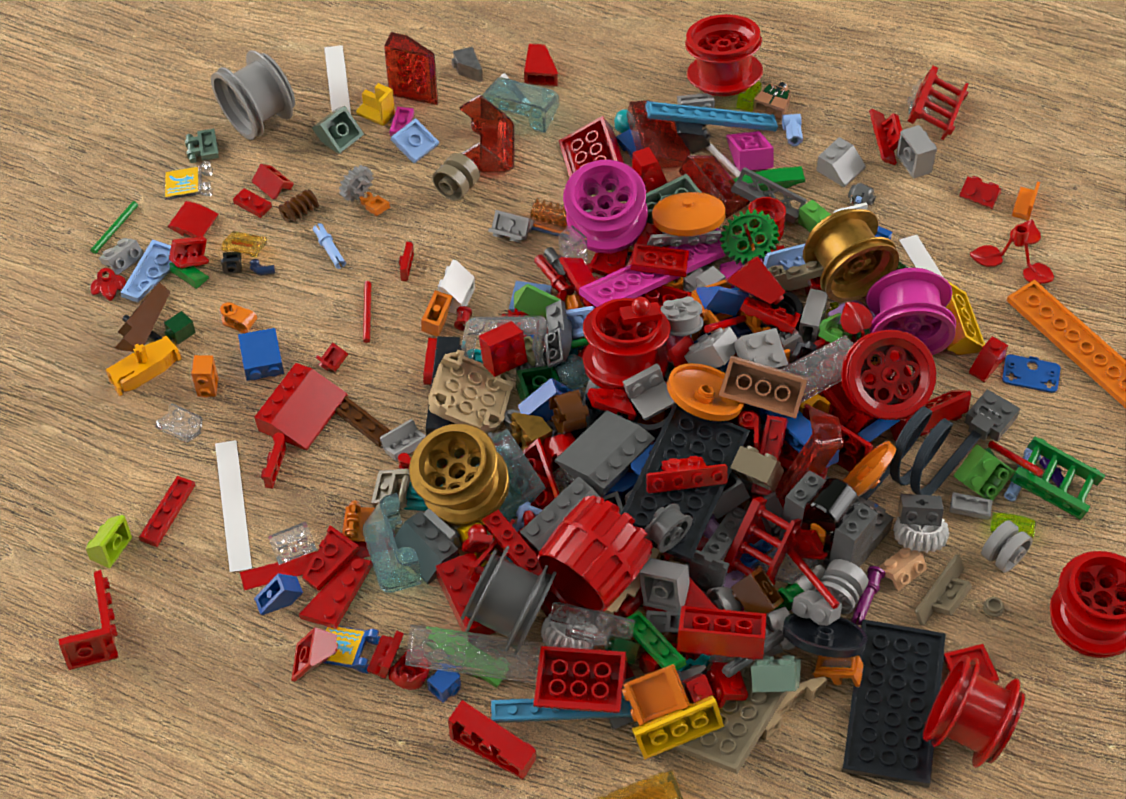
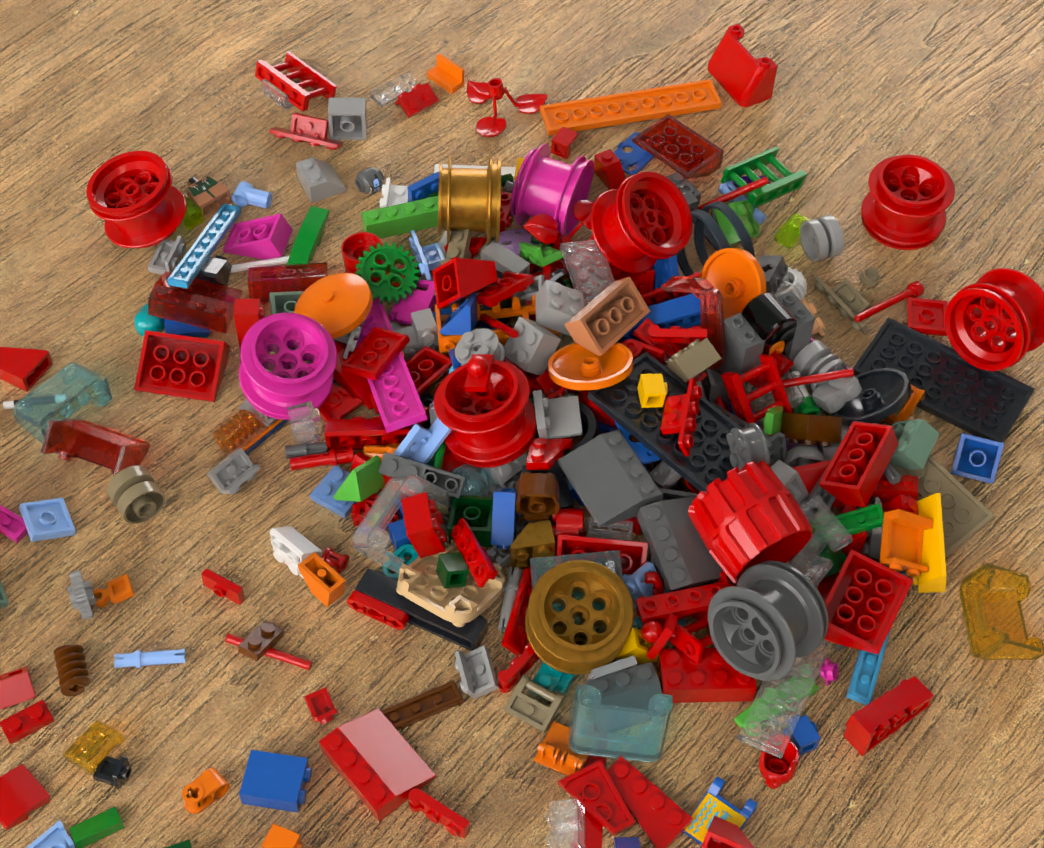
camera: 70 degrees left, 0 degrees up
(188, 252) = (73, 815): red bracket -> none
(261, 270) = (134, 747): dark blue arm -> none
(371, 301) = (261, 640): none -> reddish brown plate
(385, 654) = (749, 777): red bracket -> none
(475, 385) = (452, 570): none -> dark green brick
(493, 396) = (473, 554): none -> red bracket
(516, 692) = (829, 671): none -> dark pink plate
(647, 627) = (824, 520): none -> clear plate
(699, 441) = (652, 390): none -> yellow brick
(742, 559) = (773, 420): none -> bright green slope
(751, 193) = (329, 250): dark grey fence -> none
(776, 443) = (676, 334): none -> red plate
(811, 751) = (977, 458): none -> blue slope
(971, 506) = (764, 244): light grey plate -> none
(987, 173) = (390, 91): none -> clear plate
(997, 647) = (913, 290): none -> red piece
(1000, 309) = (562, 142): none -> red panel
(1045, 398) = (680, 148): none -> clear red slope

